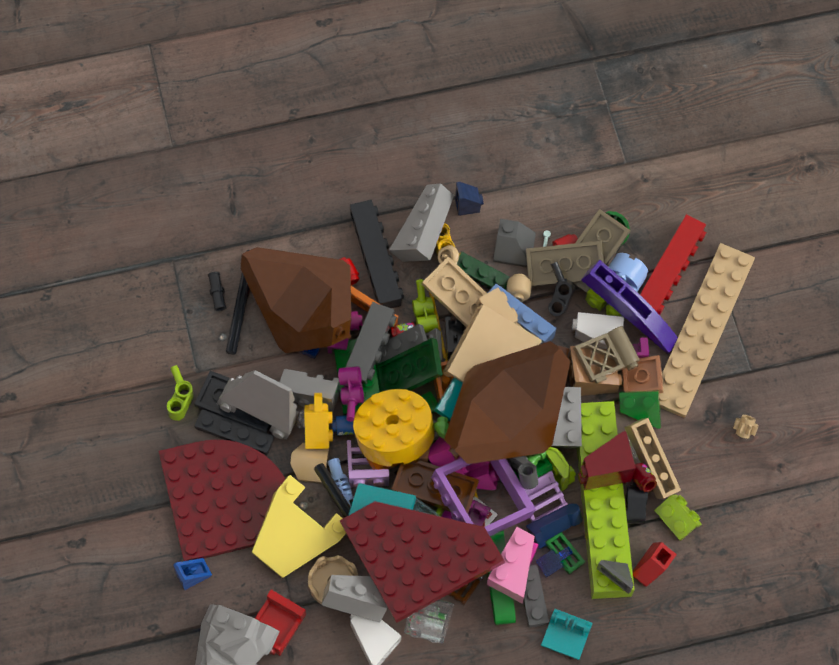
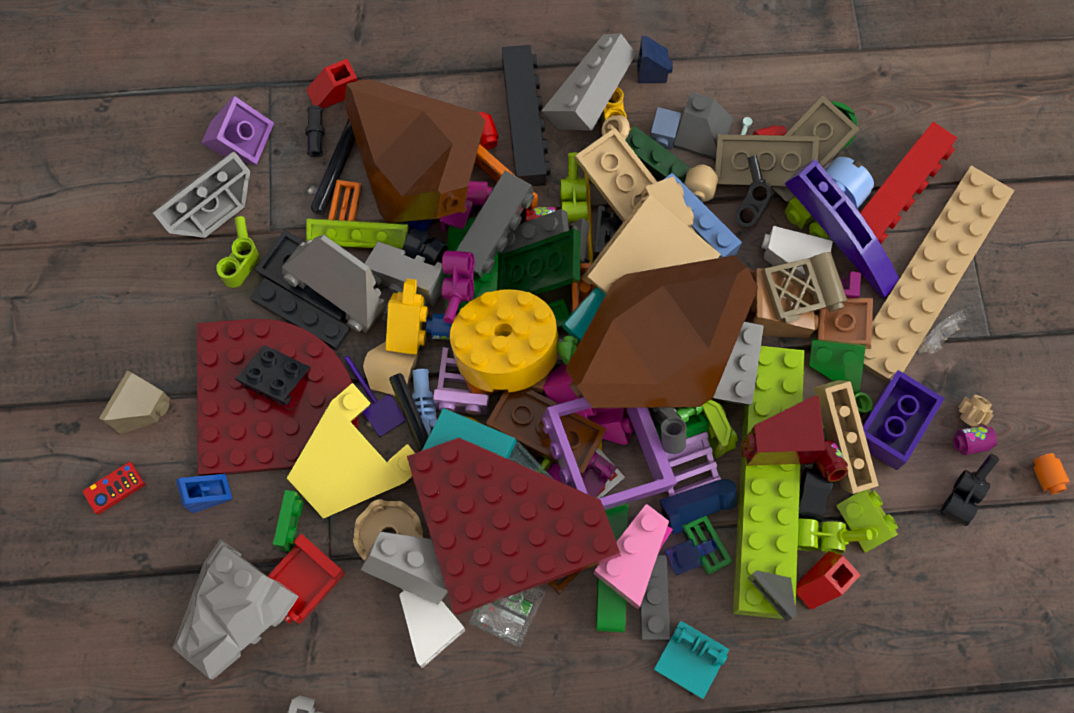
camera: 10 degrees right, 5 degrees up
(123, 580) = (113, 488): none -> tile
(129, 517) = (134, 405): none -> slope
(147, 355) = (207, 199): none -> light grey wedge
(158, 301) = (238, 130): none -> medium lavender slope
(224, 253) = (331, 83): none -> red slope
(226, 479) = (272, 375): none -> black hinge
(251, 360) = (336, 196): none -> orange tile
(260, 590) = (287, 522): none -> green plate
(265, 364) = (357, 233): none -> lime tile
(312, 496) = (383, 414): none -> dark purple piece
(315, 366) = (420, 244): none -> black wheel
(485, 248) = (665, 127): none -> sand blue brick
(651, 533) = (827, 537): none -> lime beam
(663, 435) = (863, 403): none -> bright green hinge
(690, 441) = (899, 419): none -> dark purple brick
(711, 375) = (935, 339): none -> clear slope
(748, 447) = (975, 440): none -> magenta brick
(748, 485) = (967, 491): none -> black beam
(805, 463) = (1050, 473): none -> orange brick

